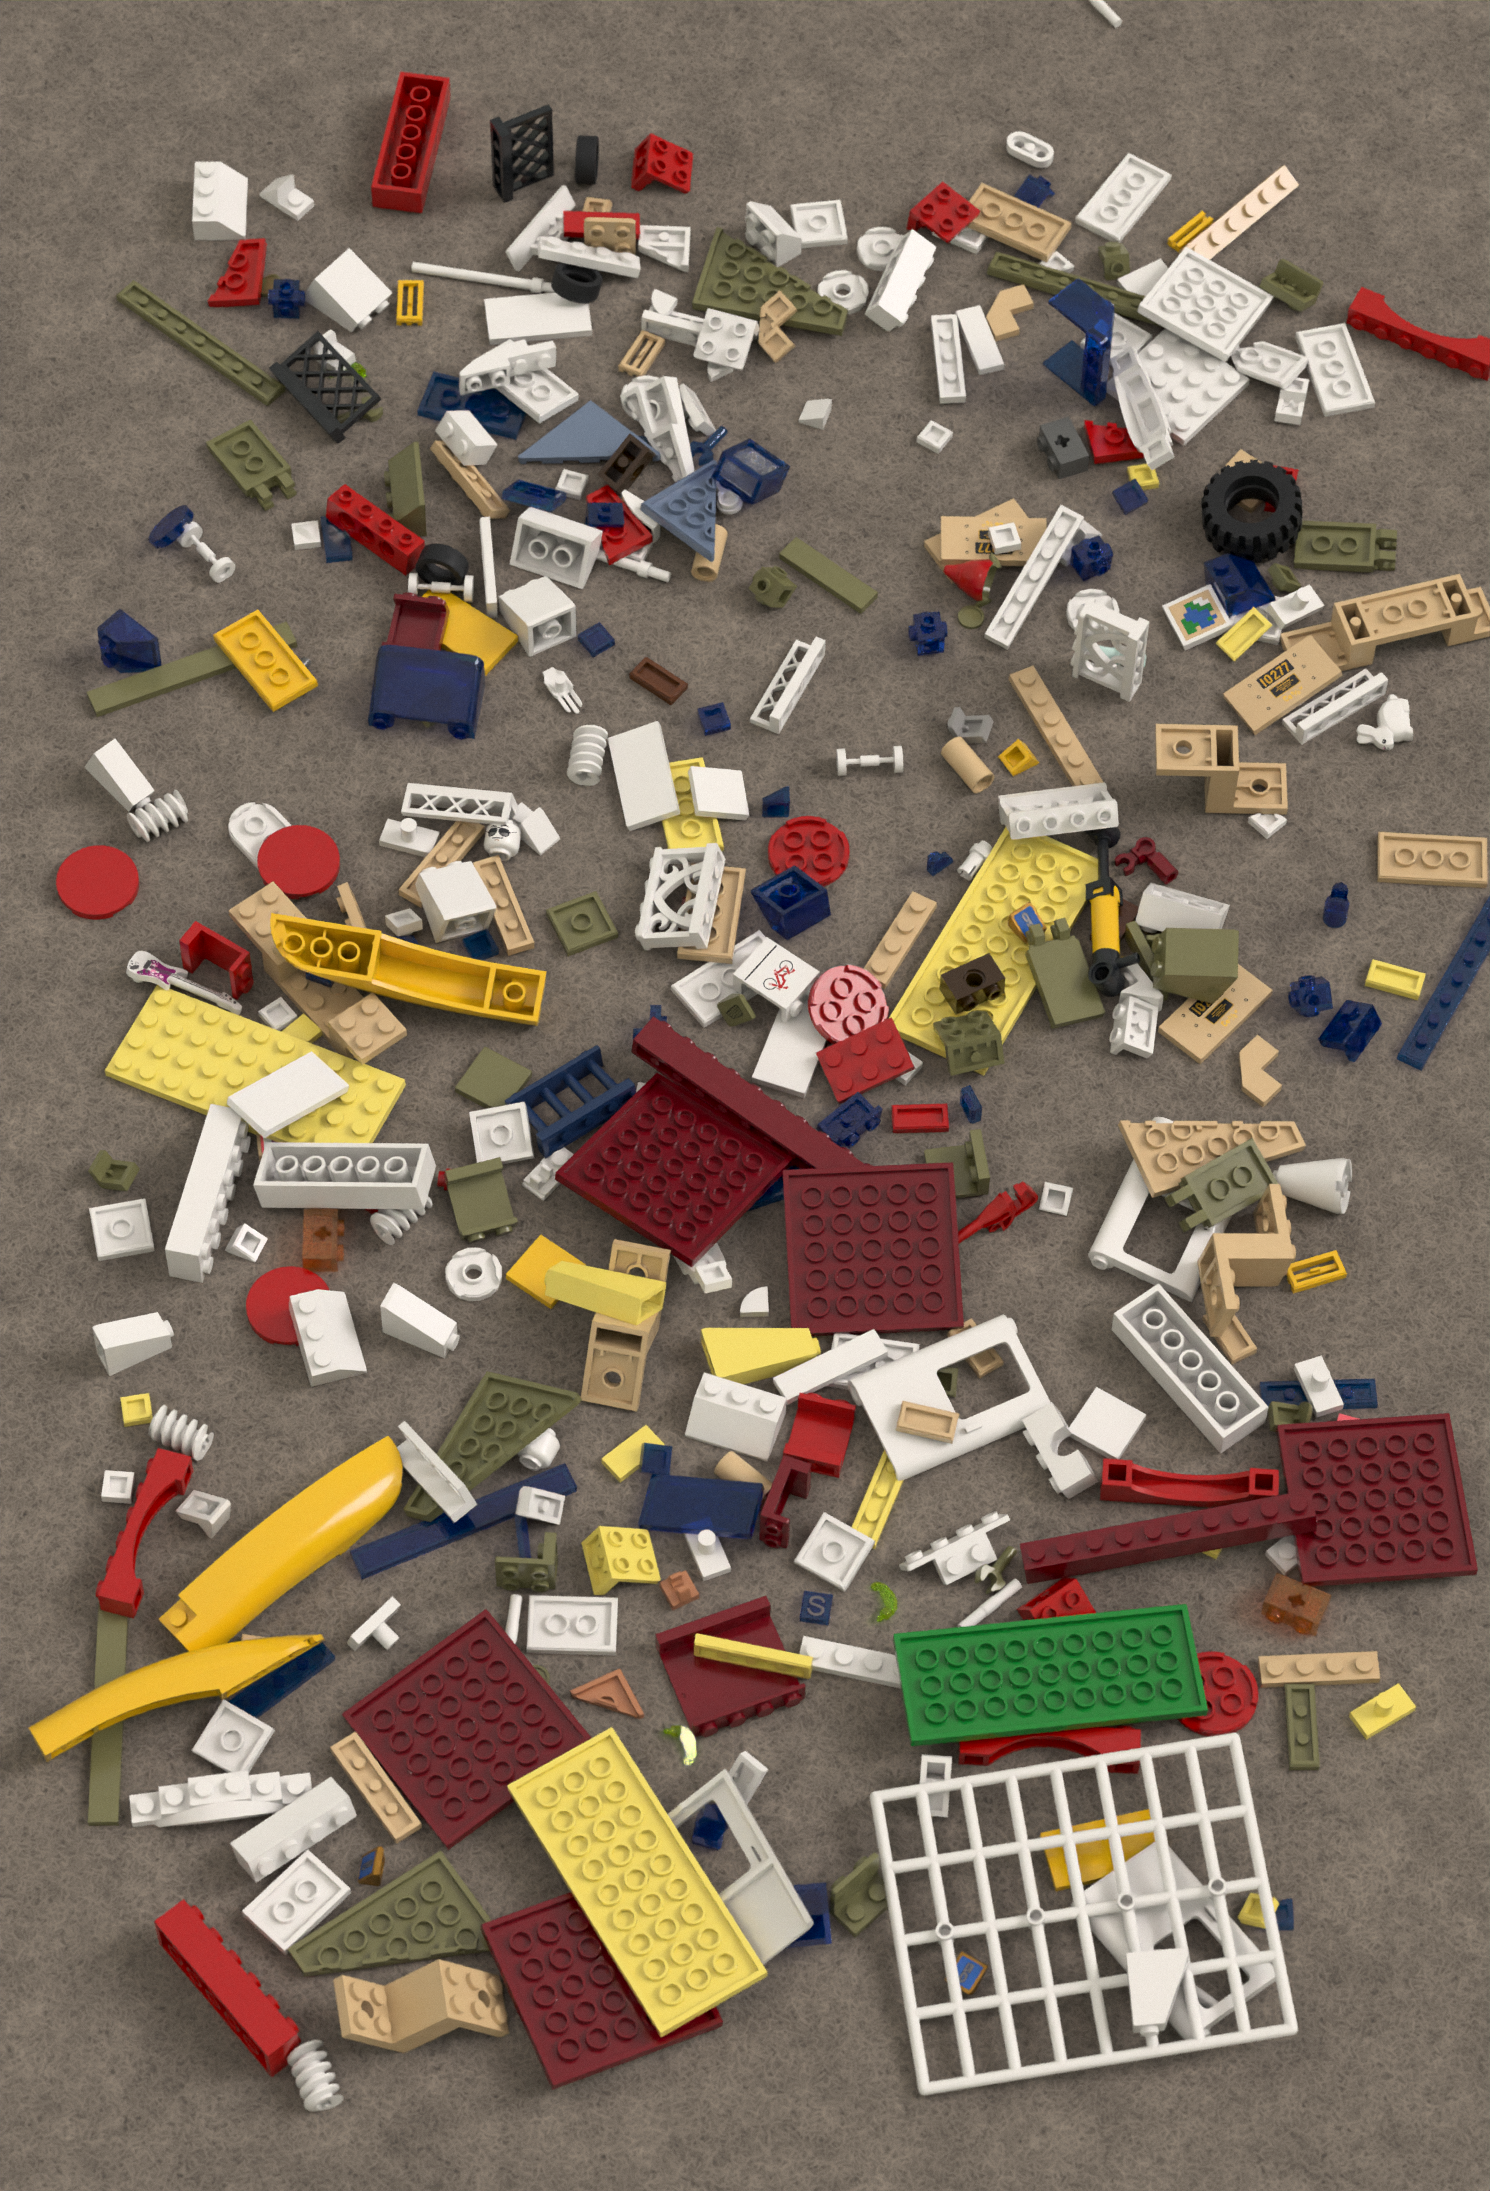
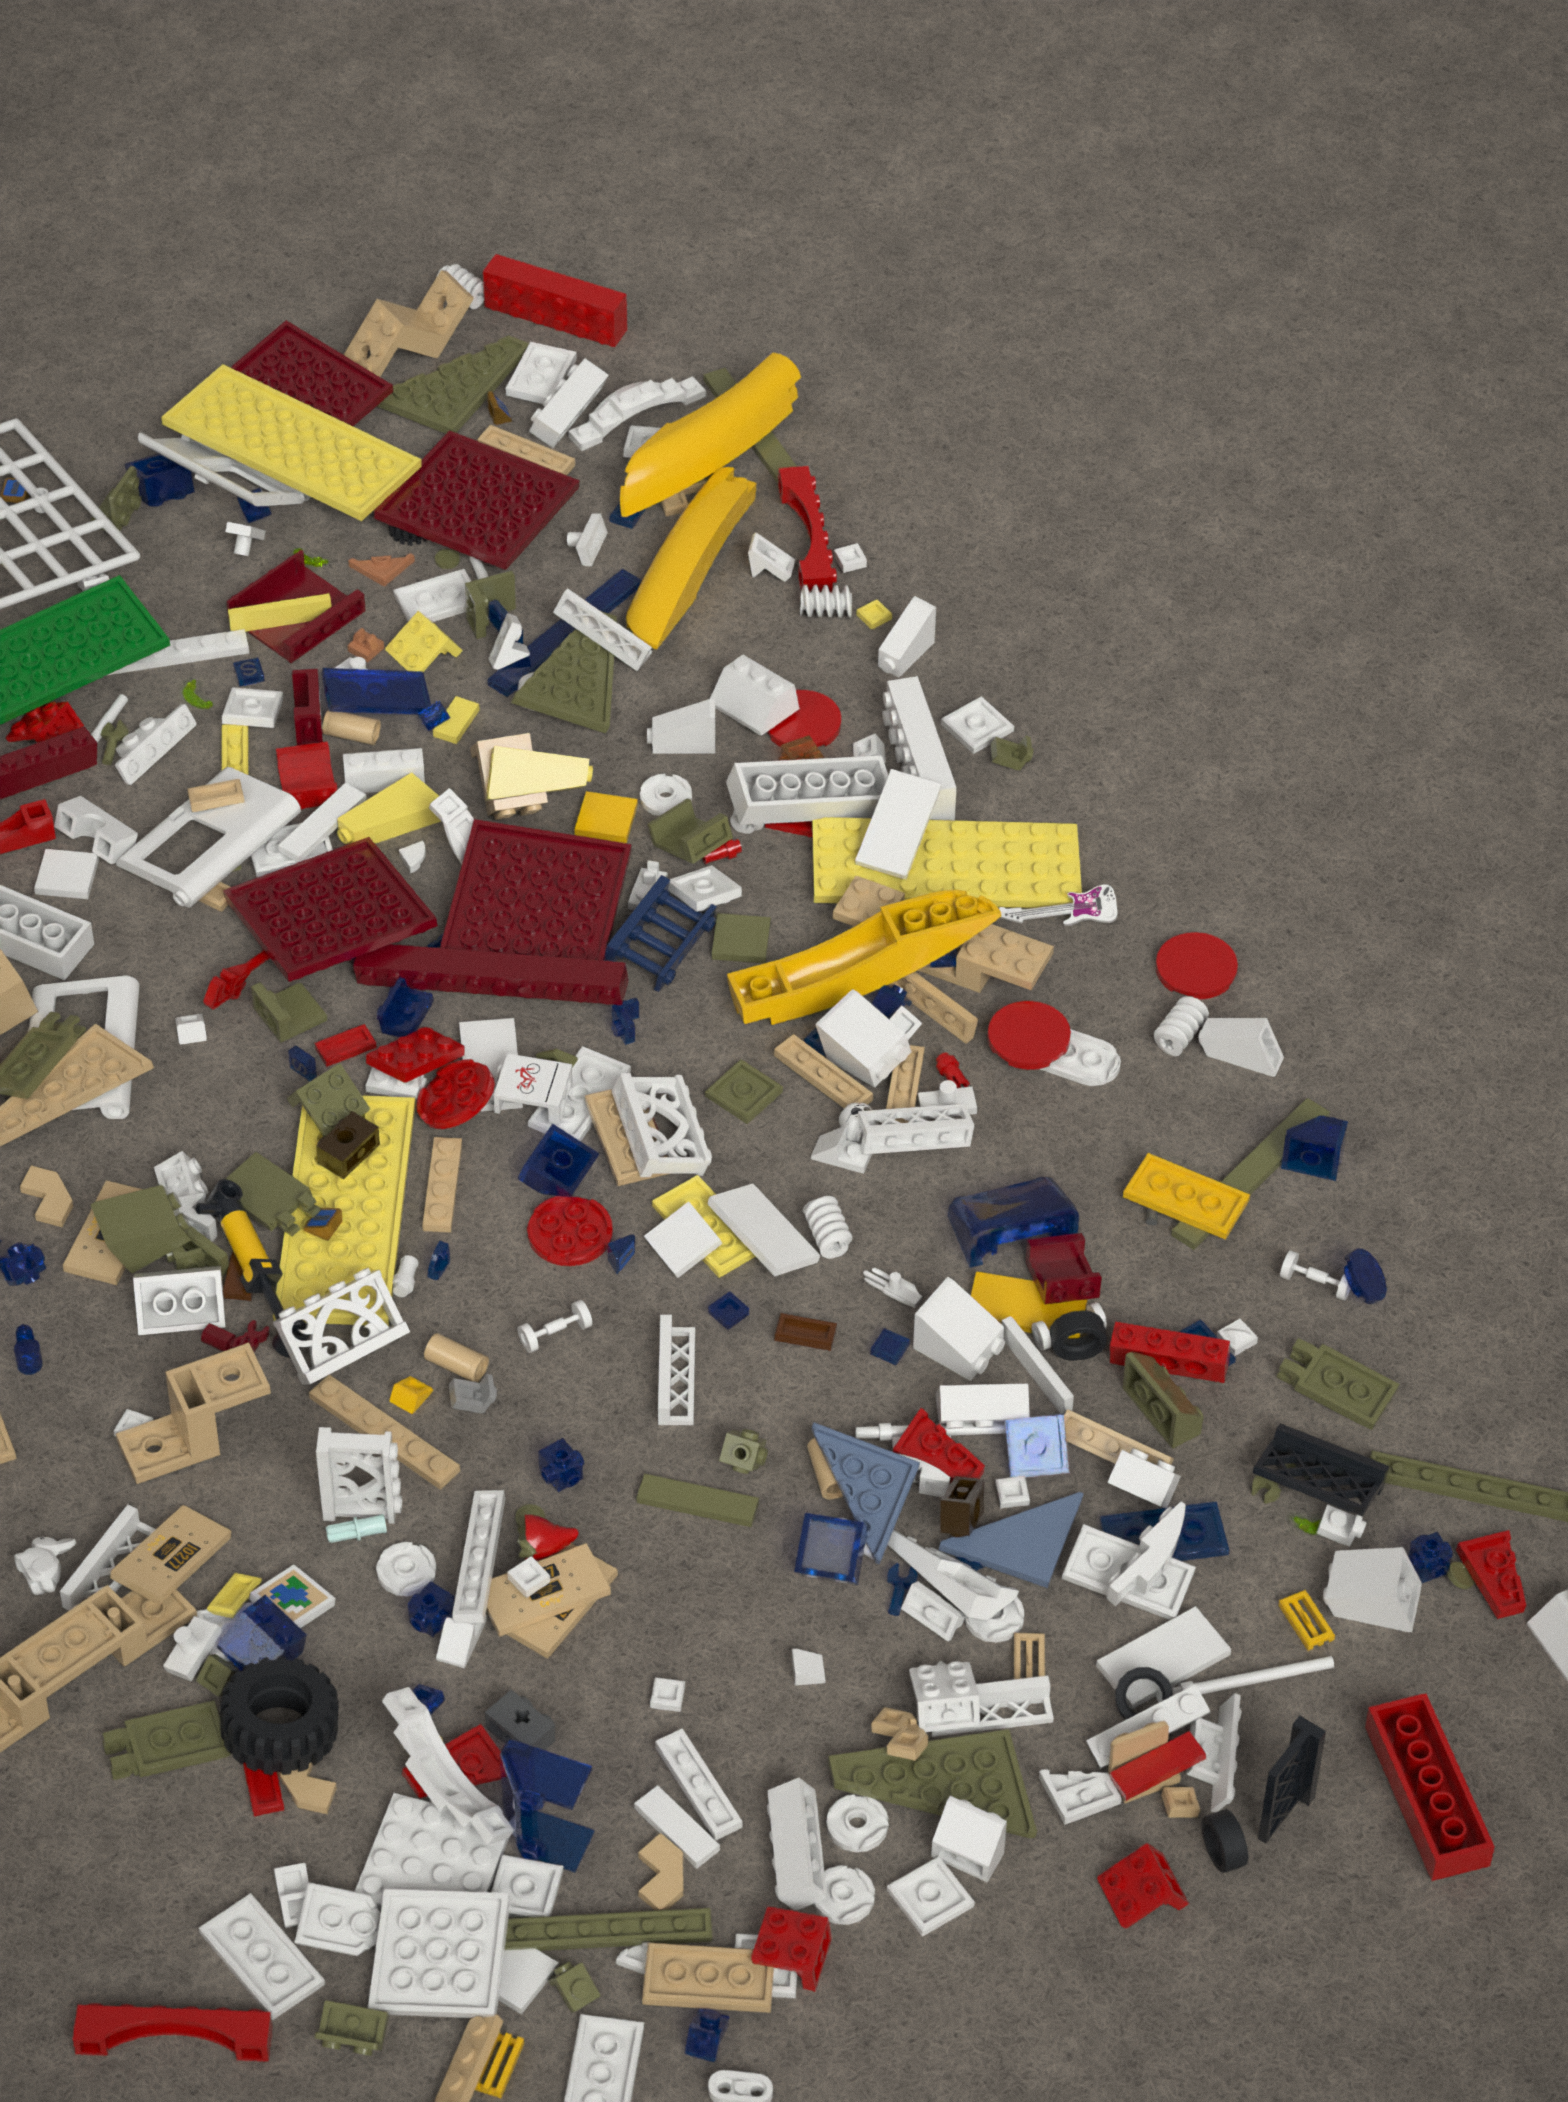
camera: 155 degrees right, 10 degrees down
(203, 943) = (1041, 924): red panel -> none
(287, 198) = (1522, 1684): white slope -> none
(387, 867) = (949, 1067): none -> red animal
(604, 515) = (951, 1447): clear blue bracket -> none
(663, 303) = (1040, 1716): white tile -> none

